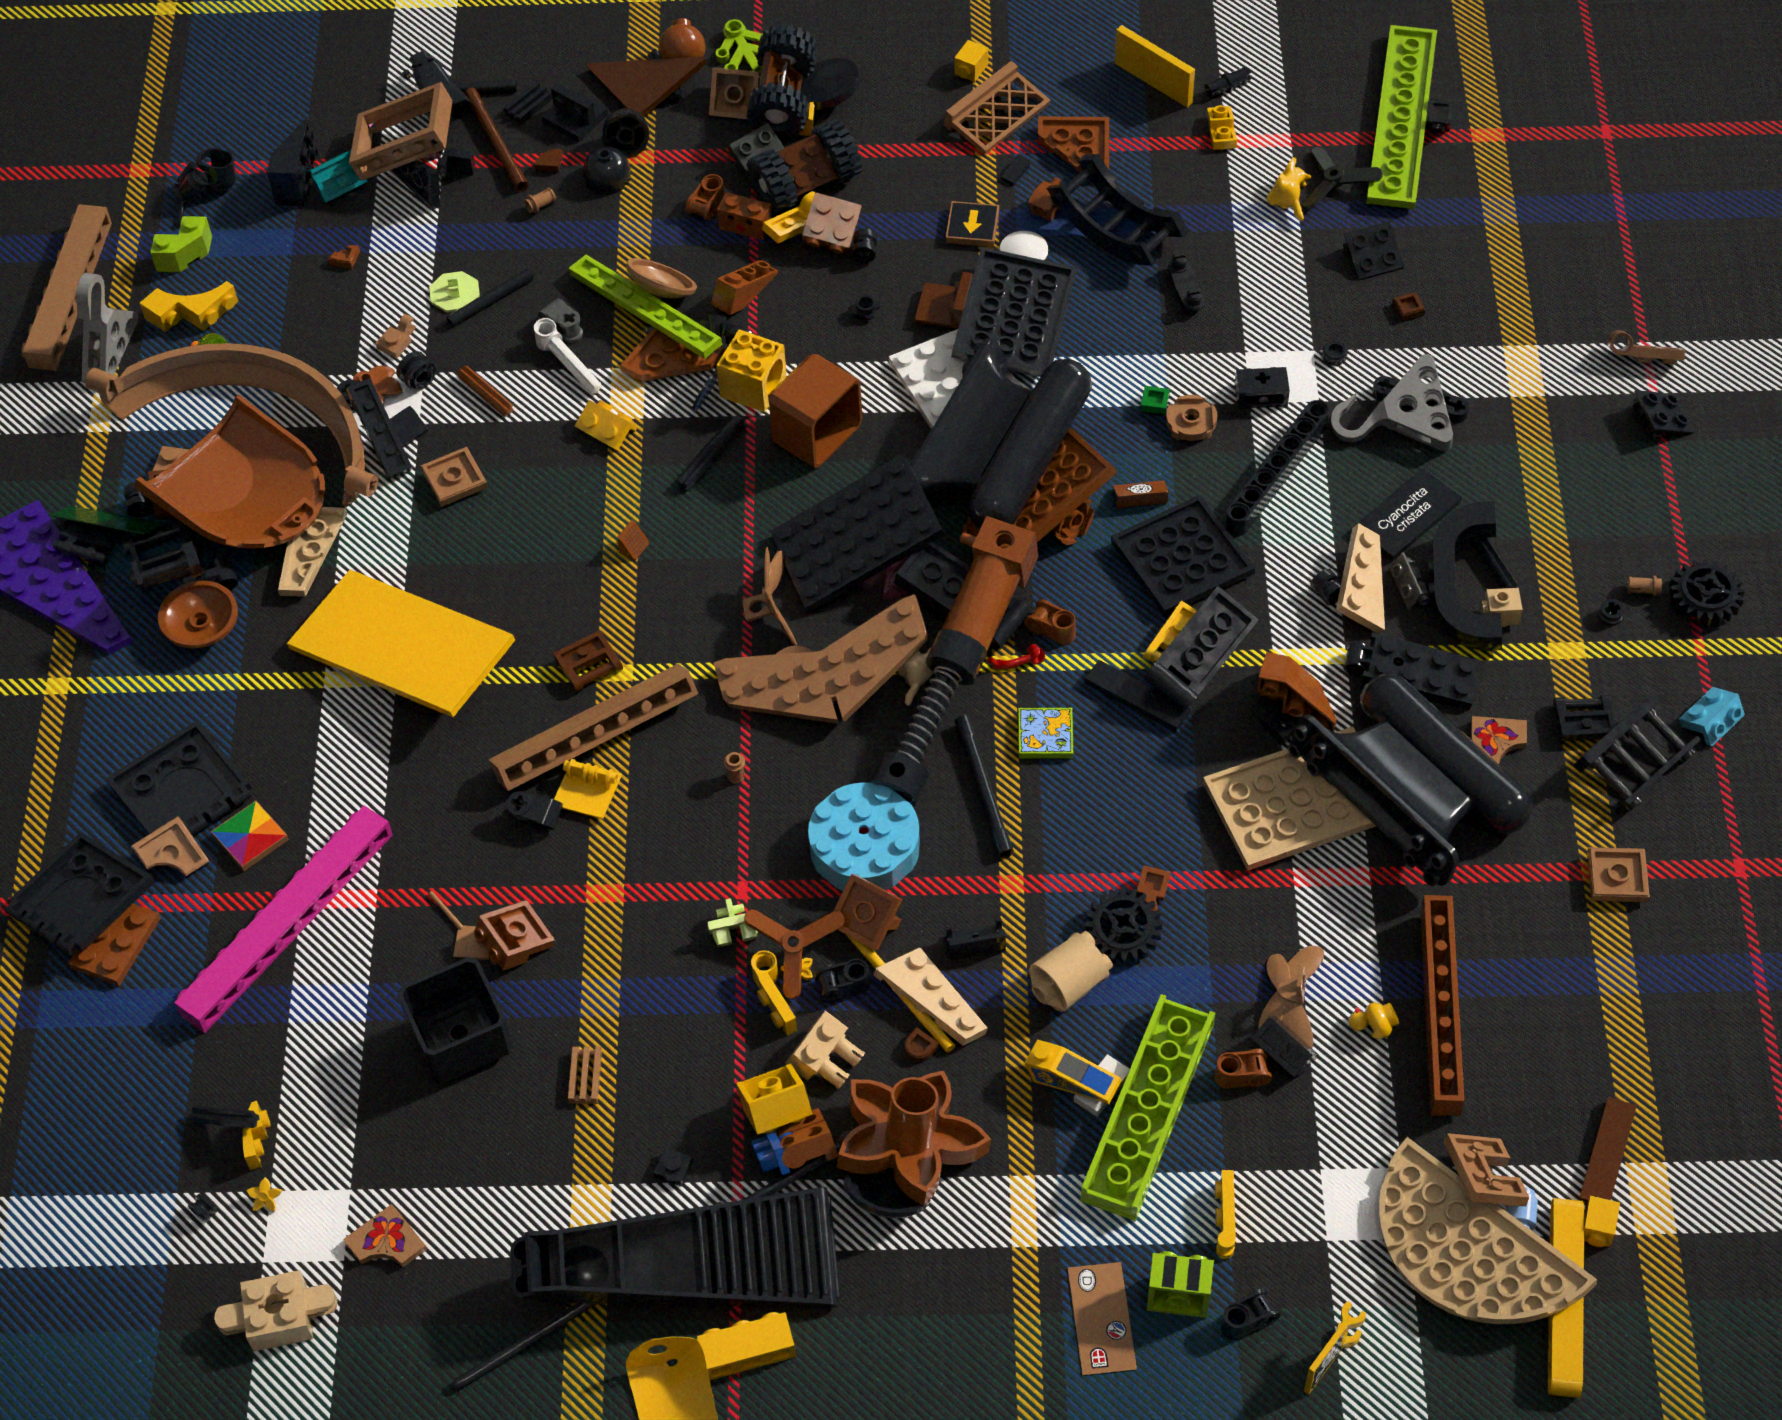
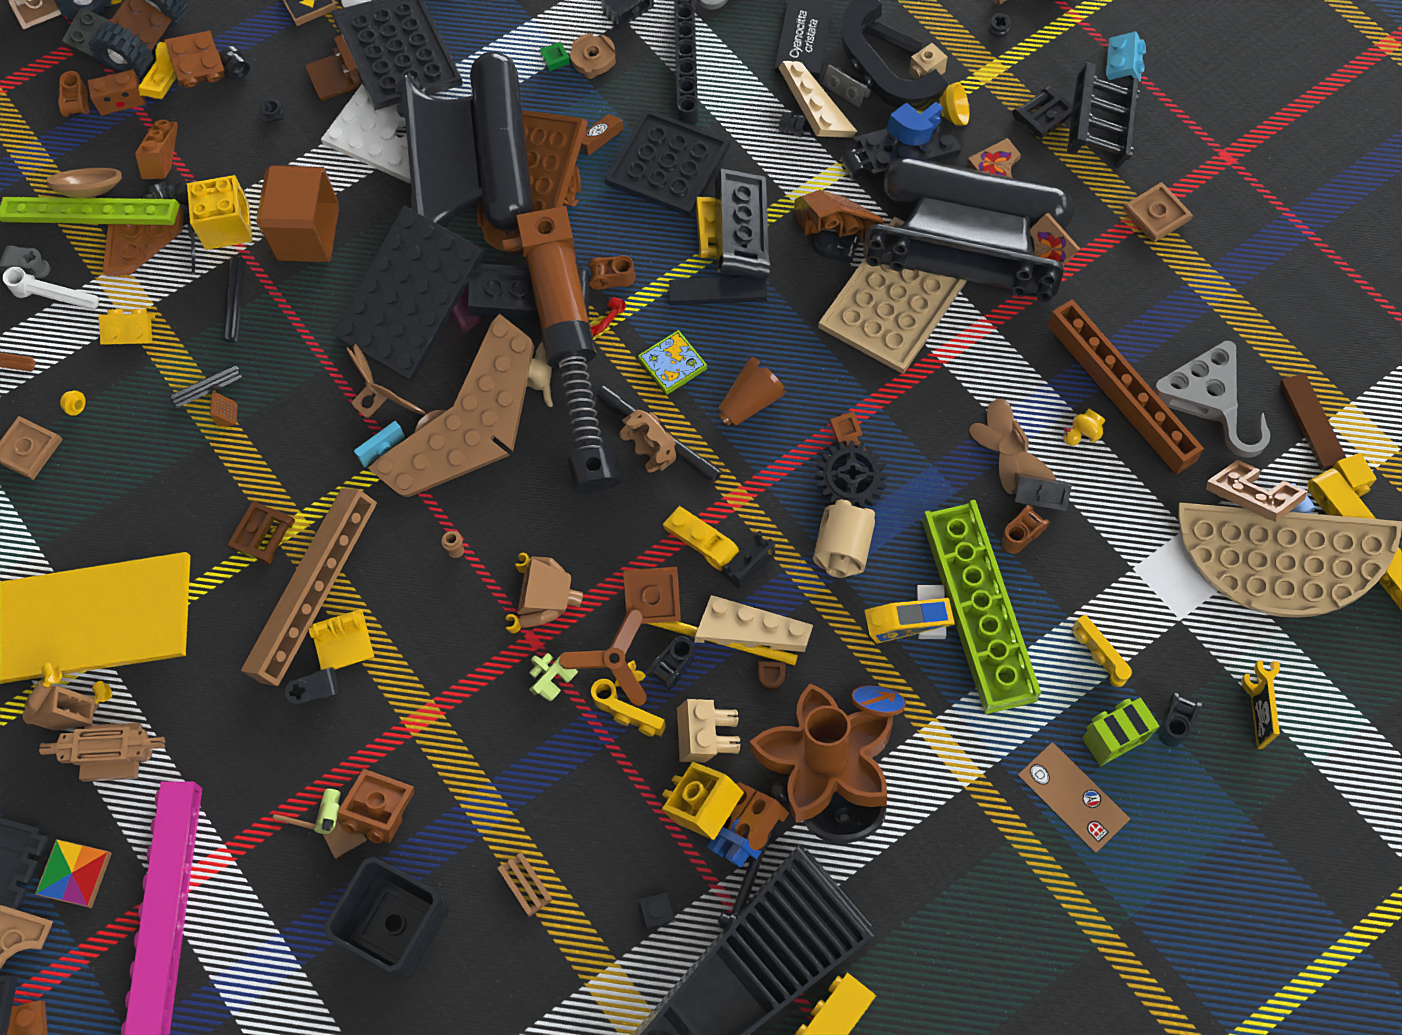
camera: 35 degrees left, 10 degrees up
(329, 697) = (59, 707): none -> medium nougat torso
(340, 755) = (105, 750): none -> medium nougat piece
(470, 915) = (328, 812): none -> yellowish green piece
(515, 457) = (73, 402): none -> yellow plate
(633, 512) = (205, 386): none -> axle
(738, 647) = (379, 444): none -> medium azure plate
(777, 854) = (543, 592): none -> medium nougat torso
(864, 833) = (600, 534): medium azure piece -> none
(949, 894) = (701, 537): none -> yellow plate
(967, 790) = (649, 439): none -> medium nougat plate
(990, 1122) = (878, 700): none -> piece
(1088, 799) = (750, 393): none -> dark orange cone
(1433, 655) = (911, 126): none -> blue brick
(1477, 839) = (1052, 241): none -> medium nougat tile
(1502, 660) = (955, 104): none -> yellow piece
(1505, 1057) = (1221, 381): none -> light grey piece

